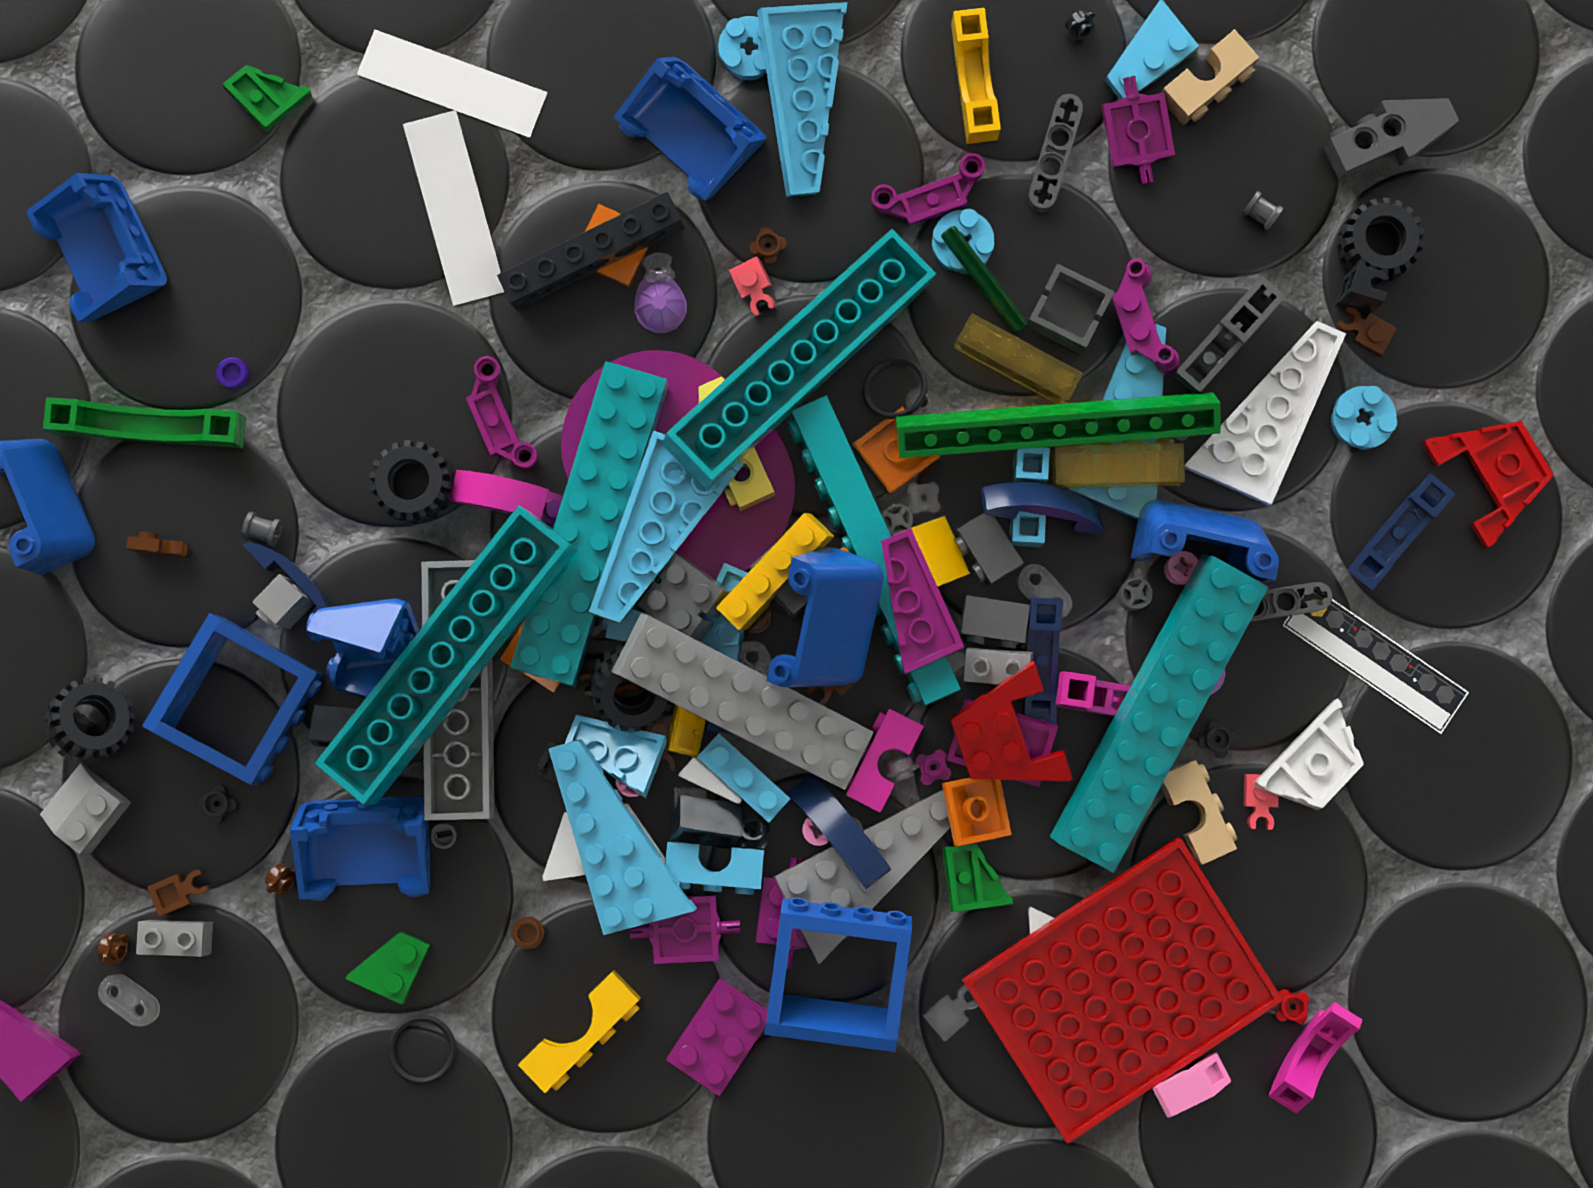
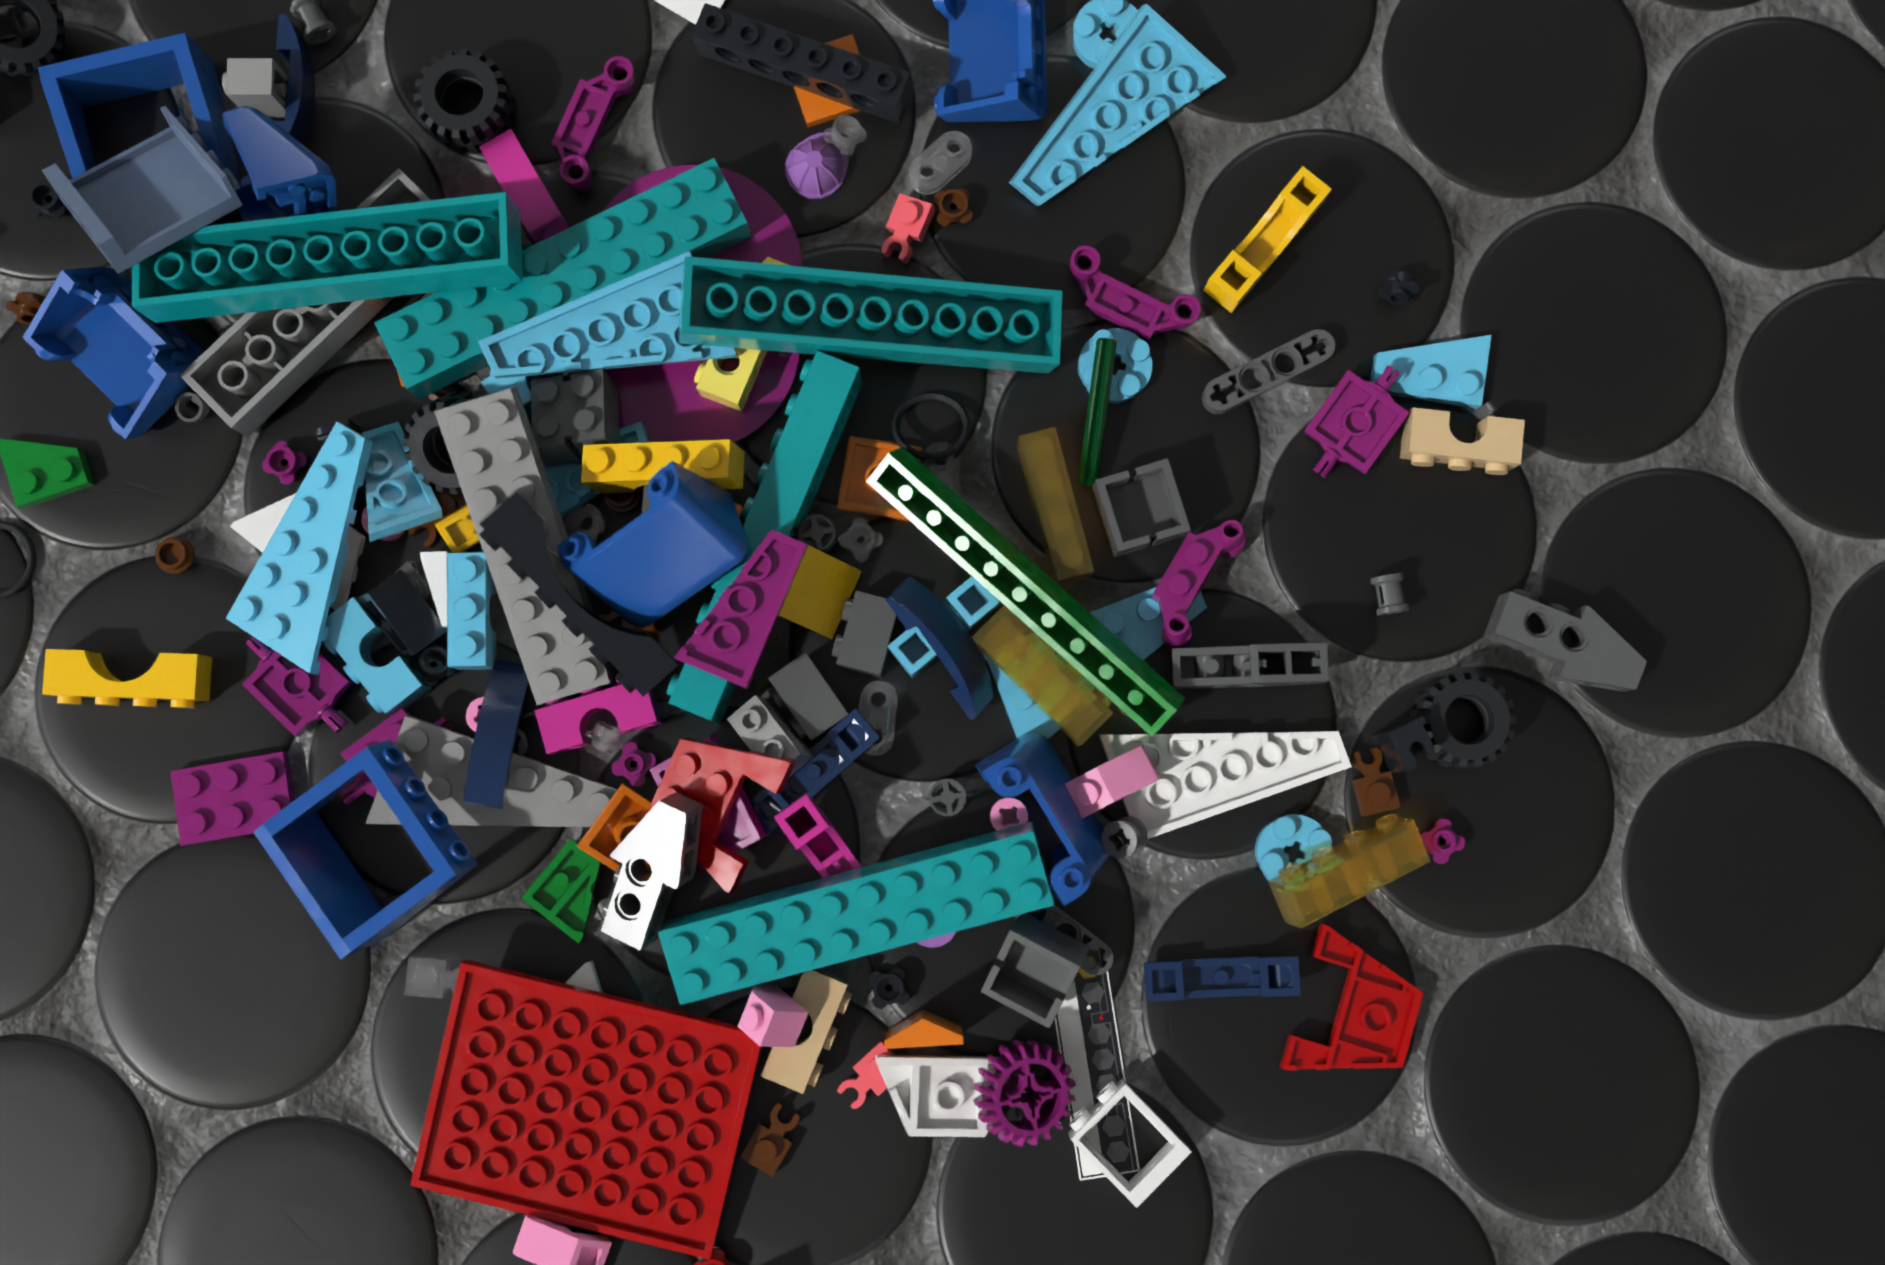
camera: 45 degrees right, 0 degrees up
(294, 730) = (149, 194): none -> sand blue panel
(525, 806) = (274, 460): none -> magenta plate
(731, 225) = (941, 161): none -> clear plate
(746, 692) = (632, 652): none -> black arch
(1008, 787) = (670, 845): none -> brick
(1172, 822) = (772, 1017): none -> bright pink slope
(1222, 483) = (1112, 781): none -> bright pink slope
(1245, 901) = (768, 1143): none -> reddish brown plate
(1262, 502) = (1132, 833): none -> dark grey wheel
(1265, 740) = (923, 1030): none -> orange slope
(1291, 639) = (1035, 969): none -> dark grey piece
(1372, 713) = (1051, 1092): none -> magenta gear
(1407, 394) = (1348, 870): none -> clear yellow brick
(1432, 328) = (1452, 841): none -> magenta plate
(1478, 680) = (1156, 1169): none -> white window

